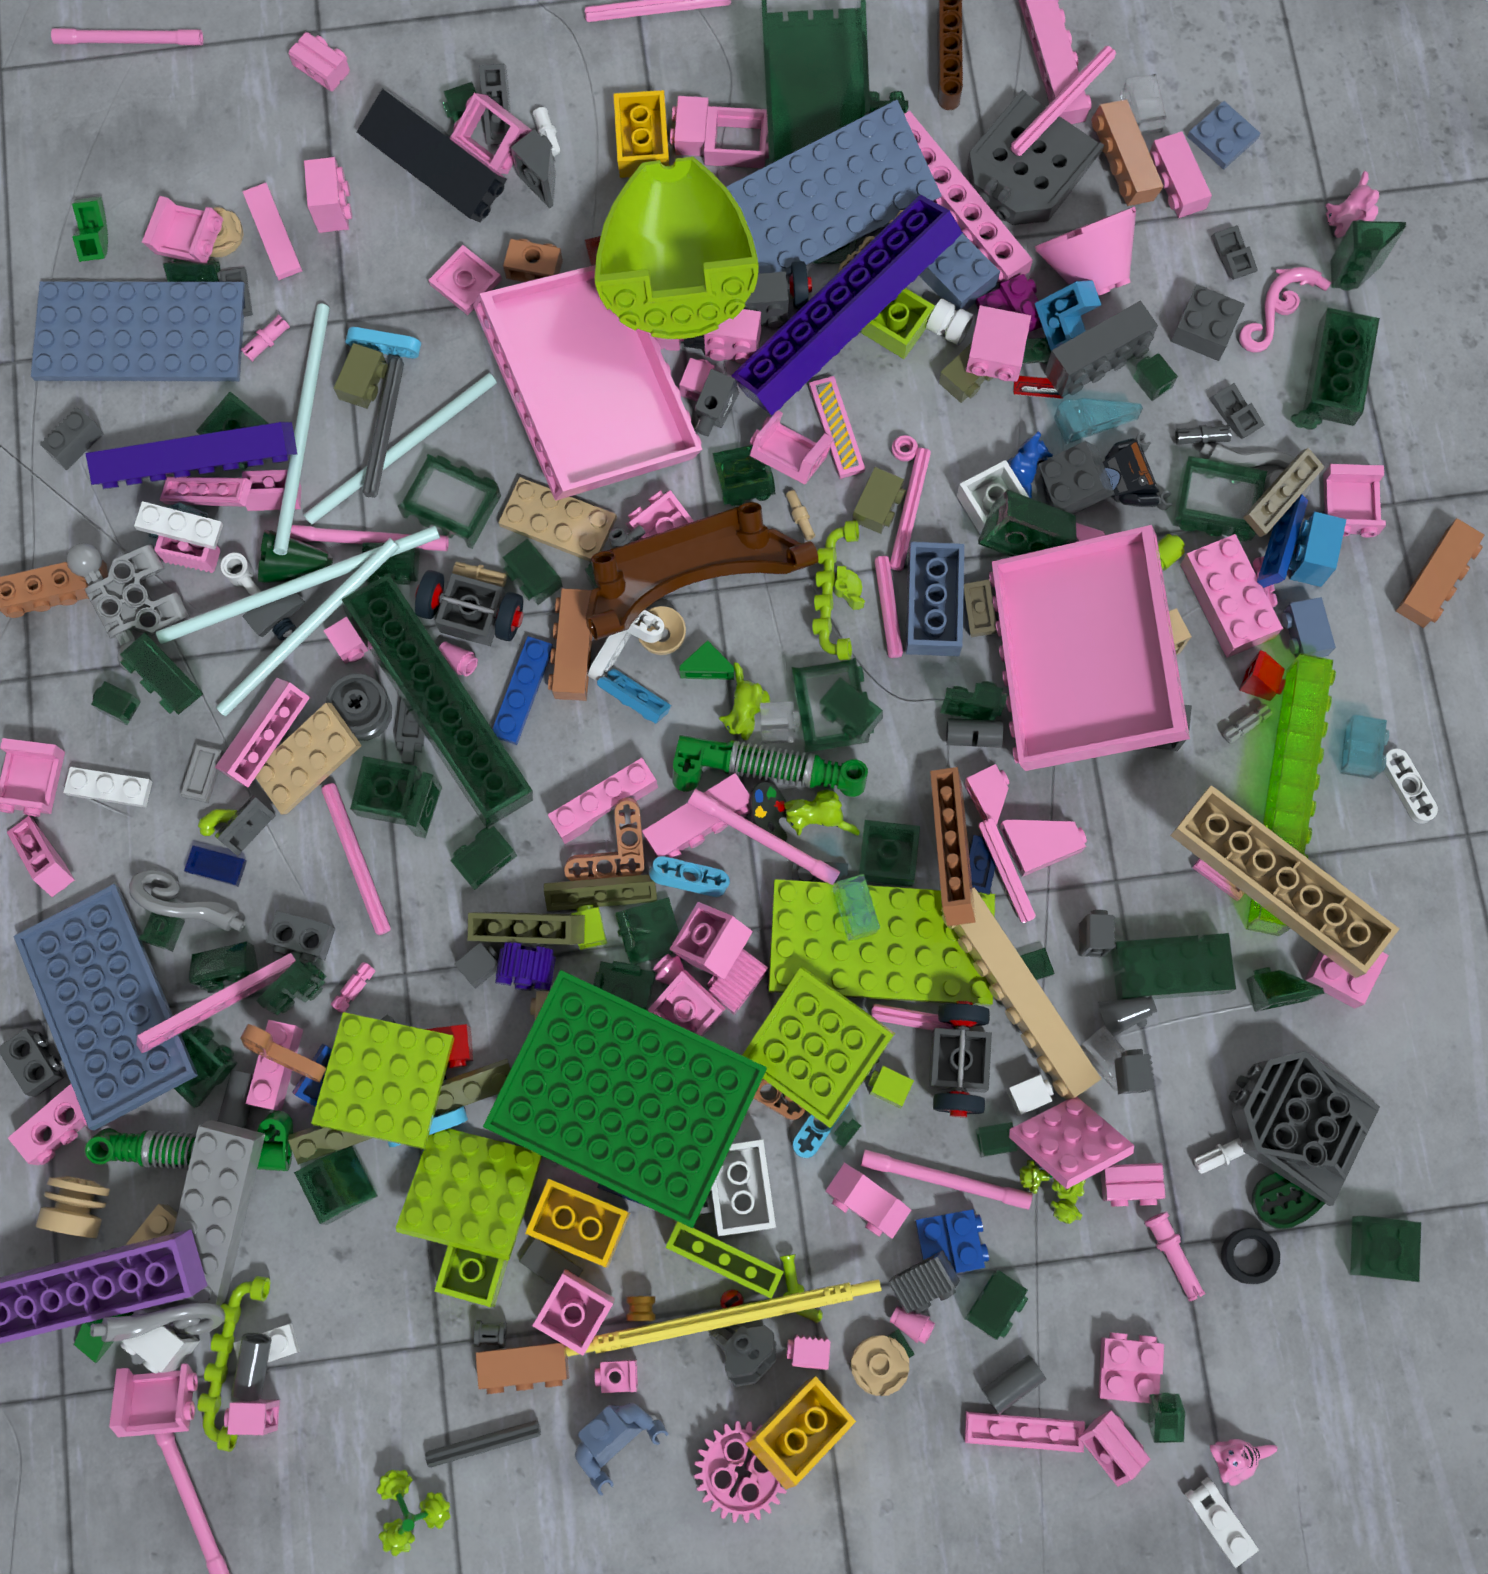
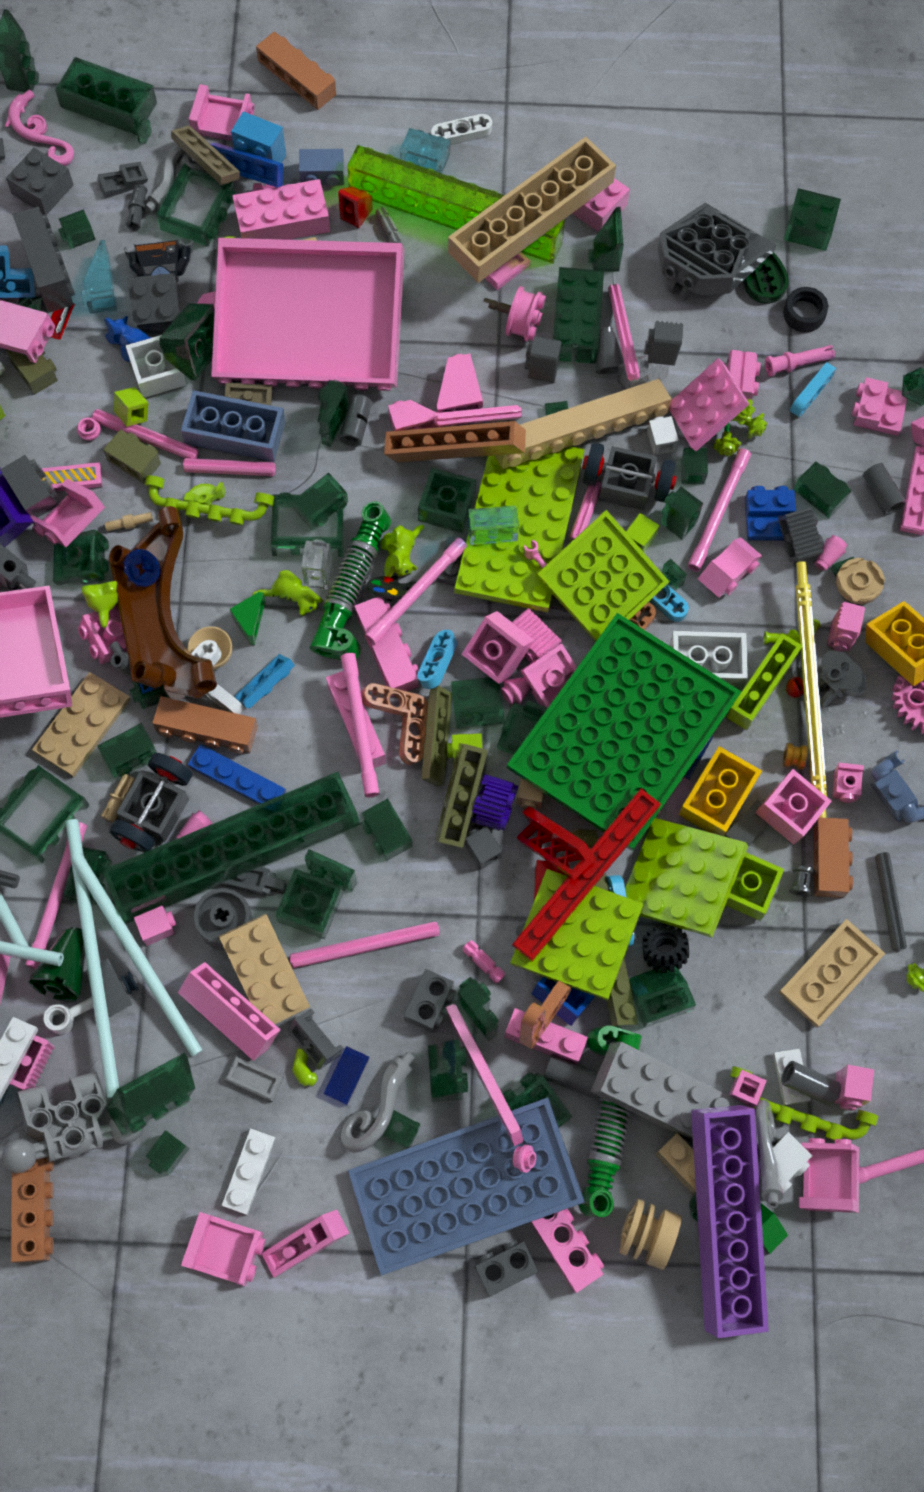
camera: 85 degrees left, 5 degrees down
(125, 1057) = (524, 1158): none -> bright pink plate
(230, 1292) = (747, 1088): none -> bright pink brick
(372, 1191) = (669, 959): none -> black tyre
(387, 1381) = (831, 973): none -> tan plate
(445, 1079) = (573, 891): none -> red tile
(481, 1045) = (561, 841): none -> red fence
(641, 783) = (368, 774): none -> bright pink piece
(693, 503) = (101, 599): none -> lime animal
(729, 546) = (149, 563): none -> clear blue gear
(810, 401) = (28, 485): none -> dark grey brick
(831, 963) = (534, 553): none -> bright pink hand
(924, 1129) = (681, 512): none -> clear green brick
(936, 484) = (130, 406): none -> lime brick
(1135, 1278) = (813, 389): none -> medium azure beam
(1154, 899) = (523, 313): none -> bright pink wheel
(1154, 1025) = (624, 333): none -> bright pink axle
(1220, 1155) = (727, 313): white axle -> none

